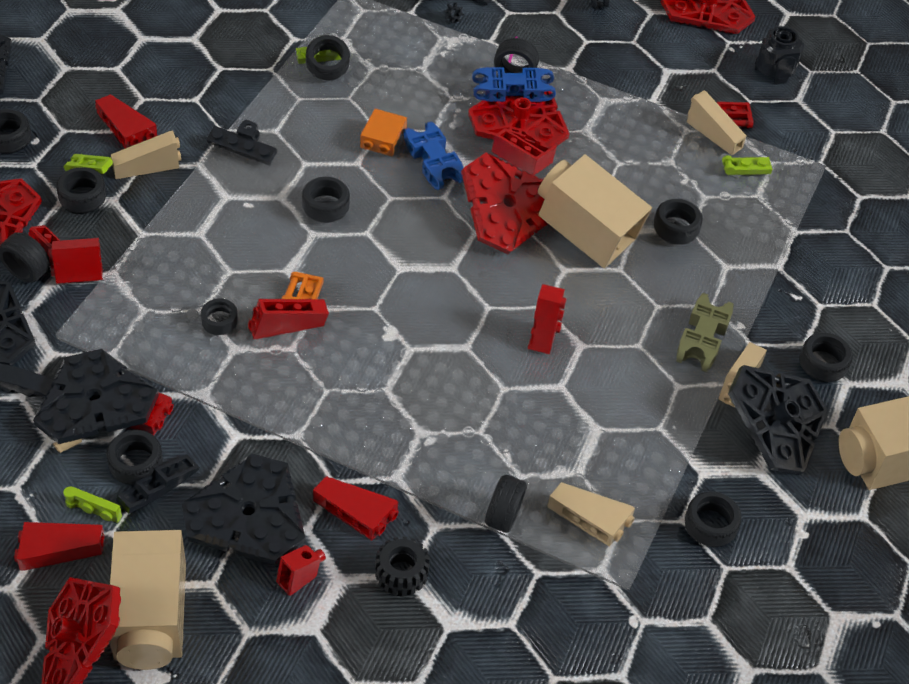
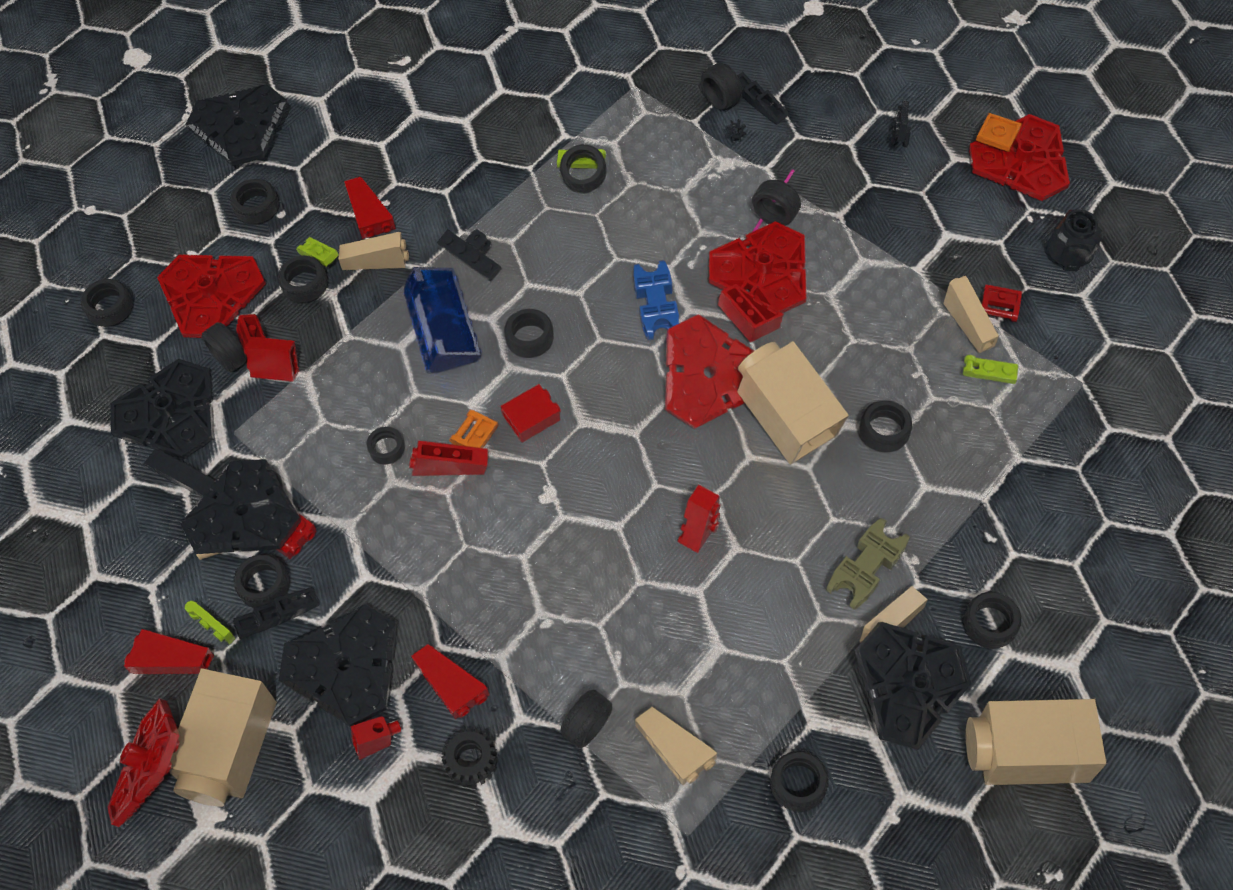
camera: 25 degrees right, 10 degrees up
(234, 201) = (440, 319): none -> clear blue windscreen
(351, 265) = (531, 412): none -> red brick
(382, 132) = (612, 263): orange panel -> none
(513, 84) = (764, 231): blue piece -> none

